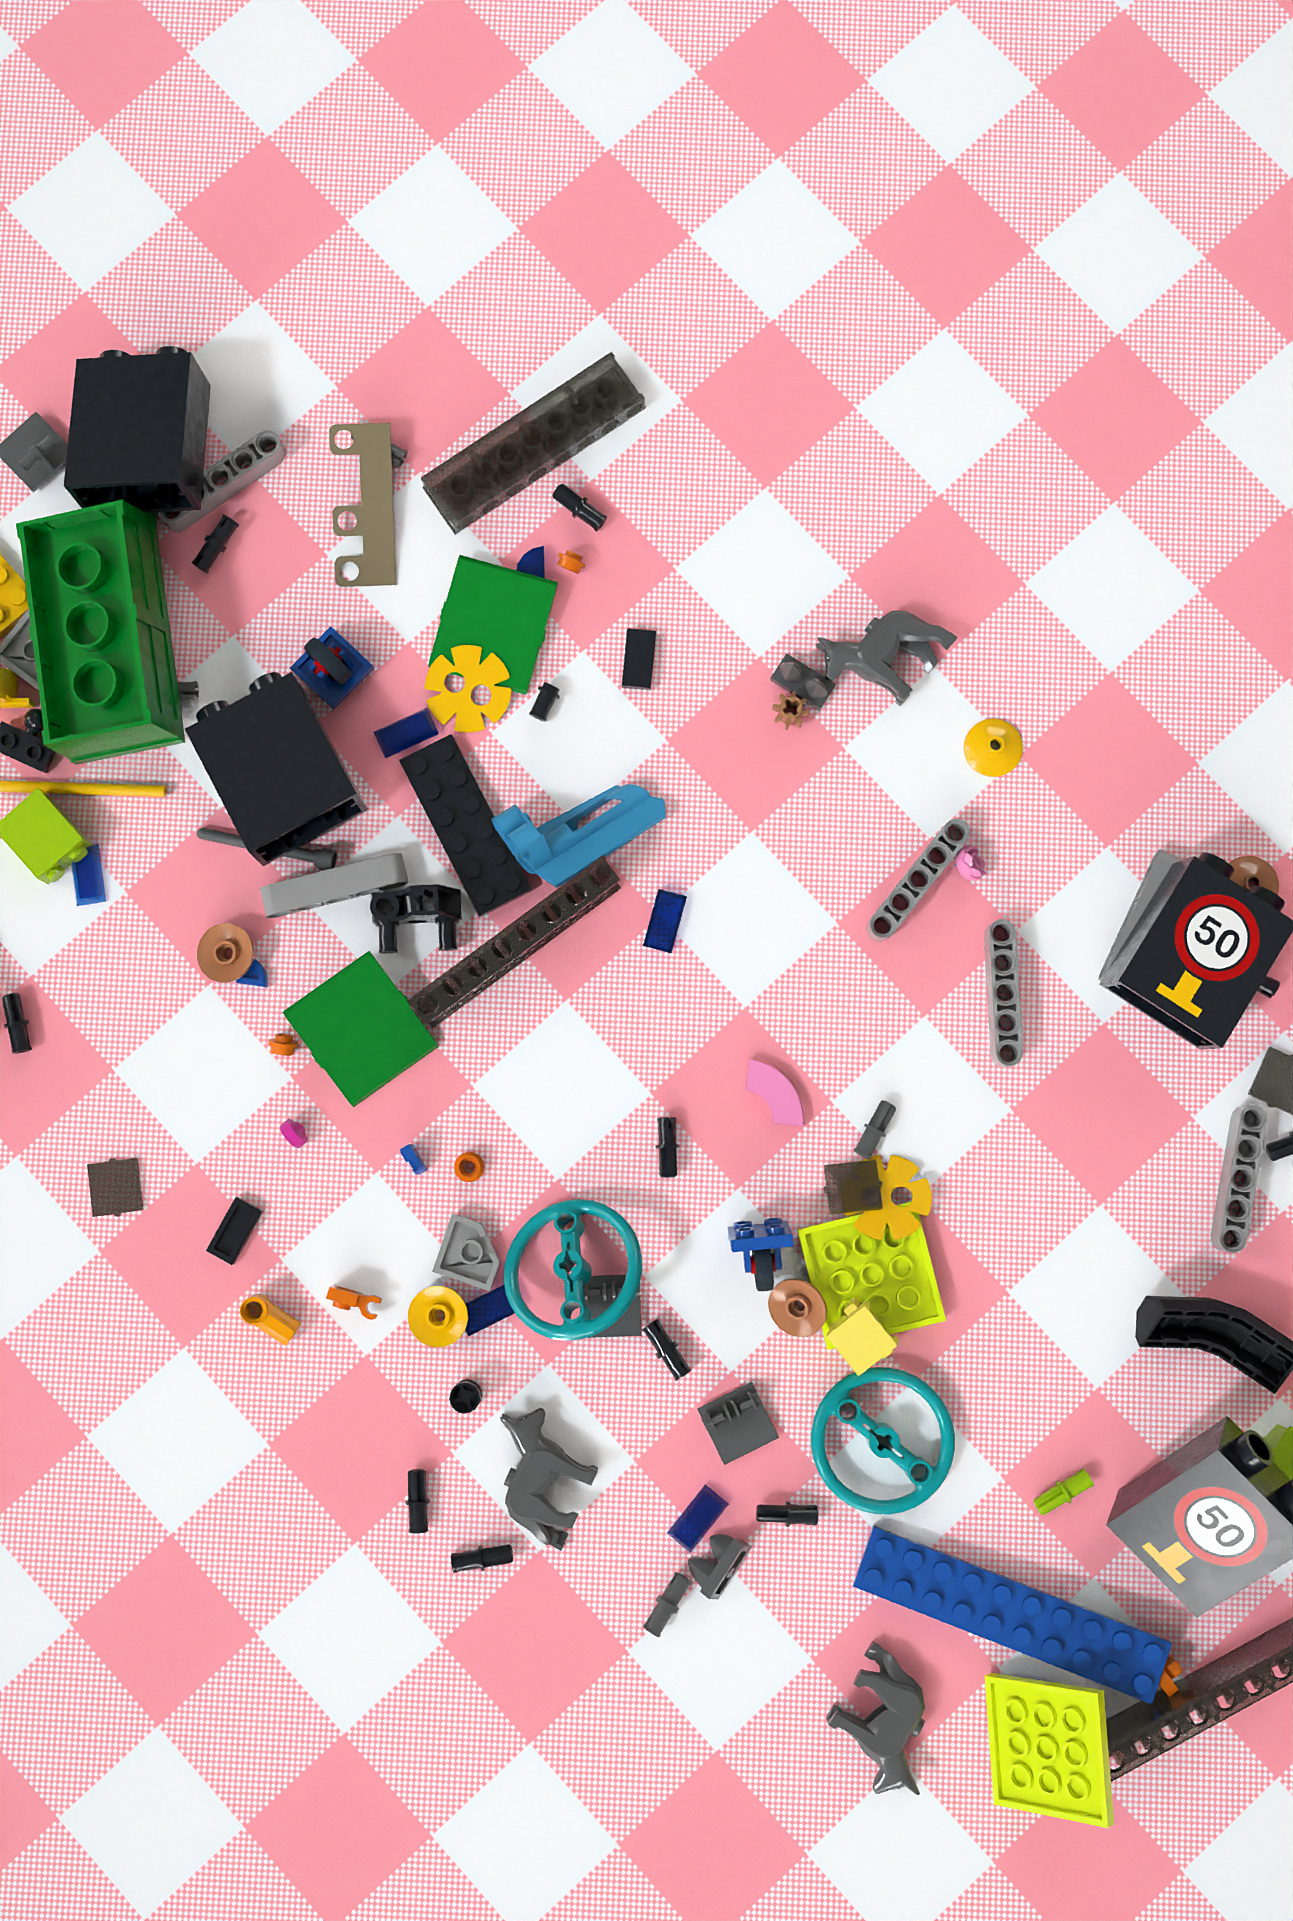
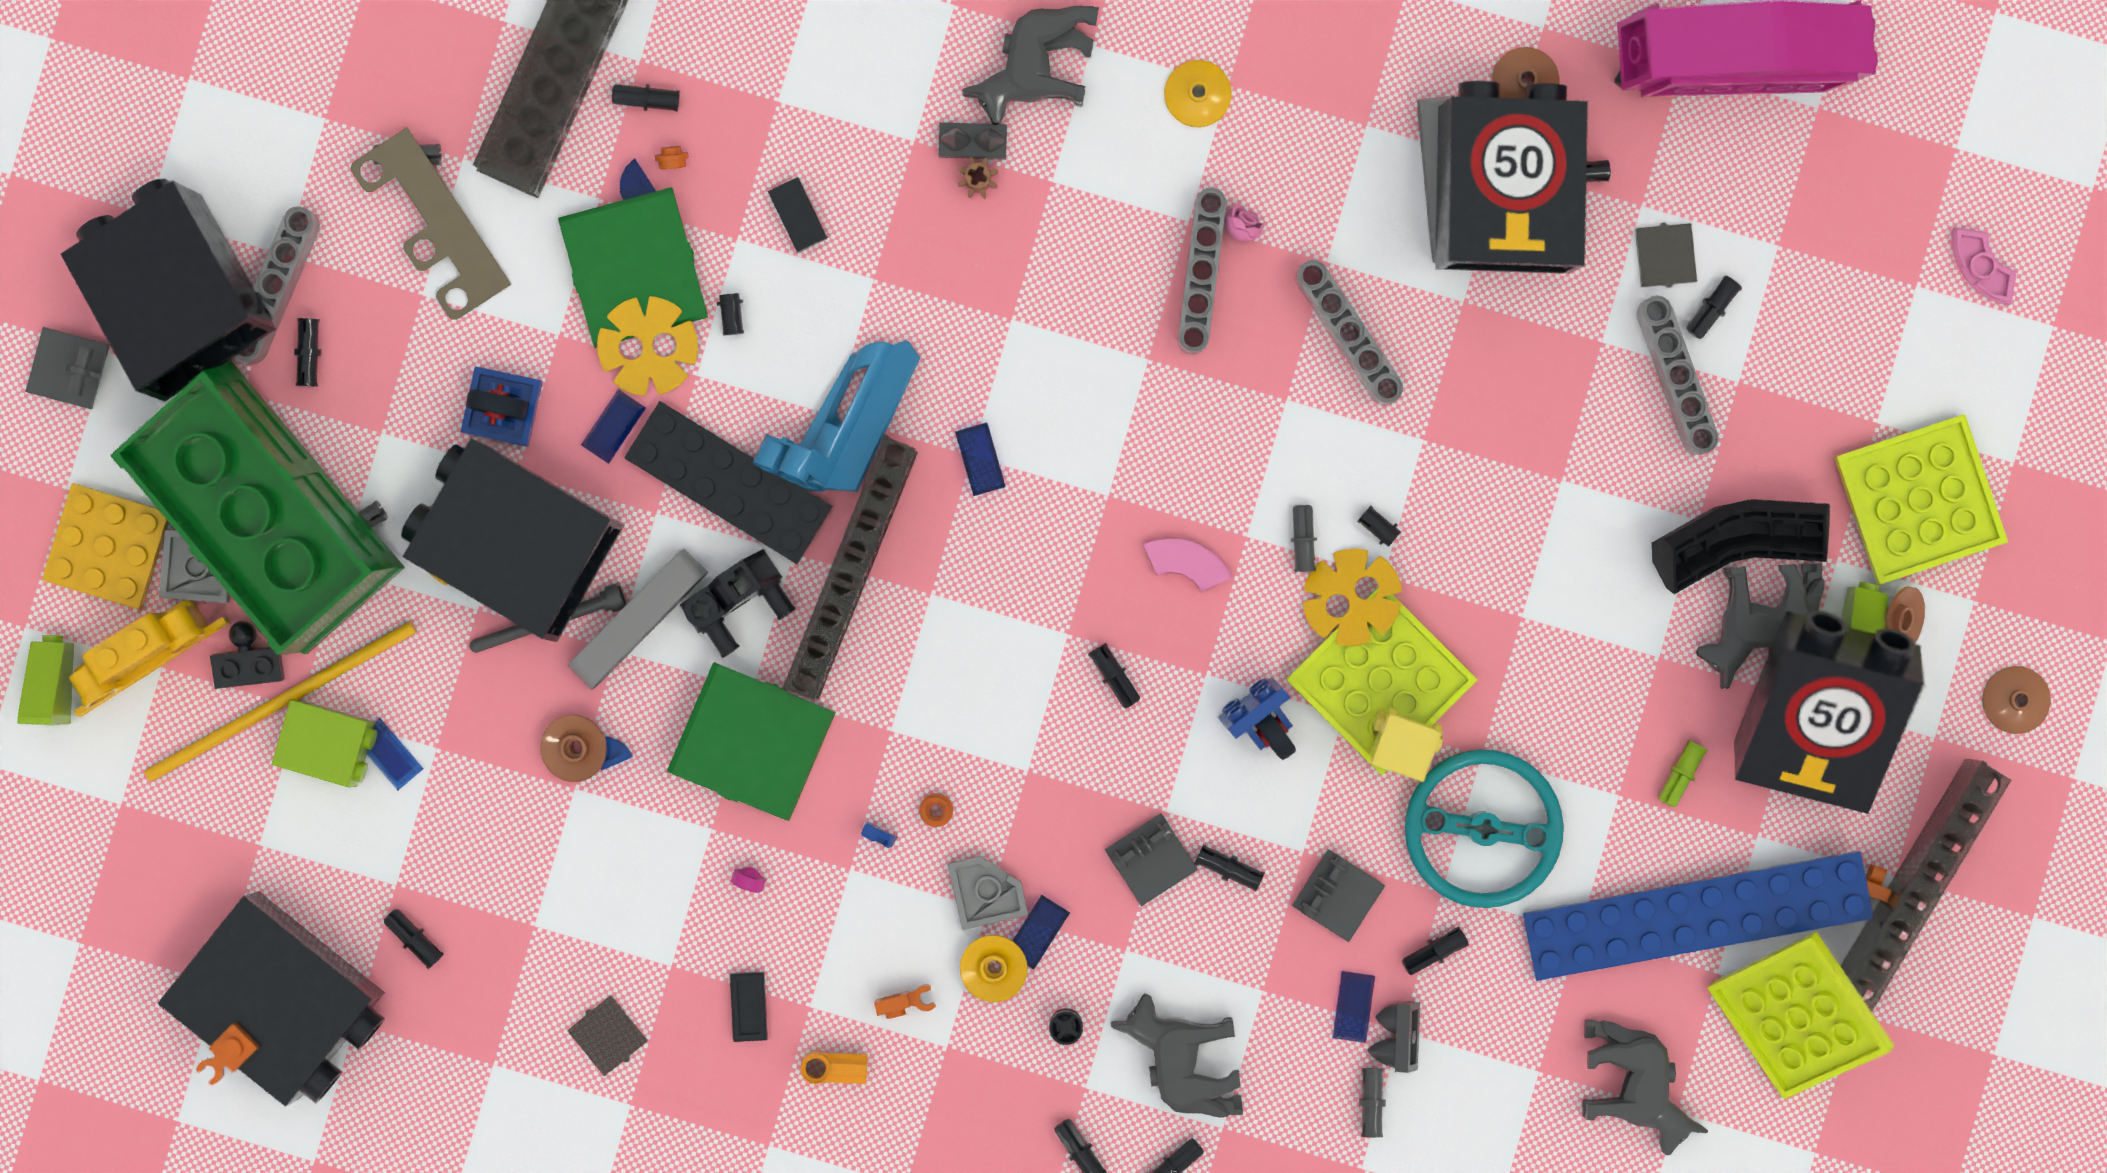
camera: 30 degrees left, 5 degrees up
(283, 1044) = (684, 802): orange plate -> none
(582, 1326) = (1083, 844): teal piece -> none
(790, 1315) = (1328, 764): nougat dish -> none
(852, 1187) = (1314, 606): clear smoke piece -> none
(939, 1155) = (1379, 526): none -> black pin
(1188, 1410) = (1755, 625): none -> dark grey animal

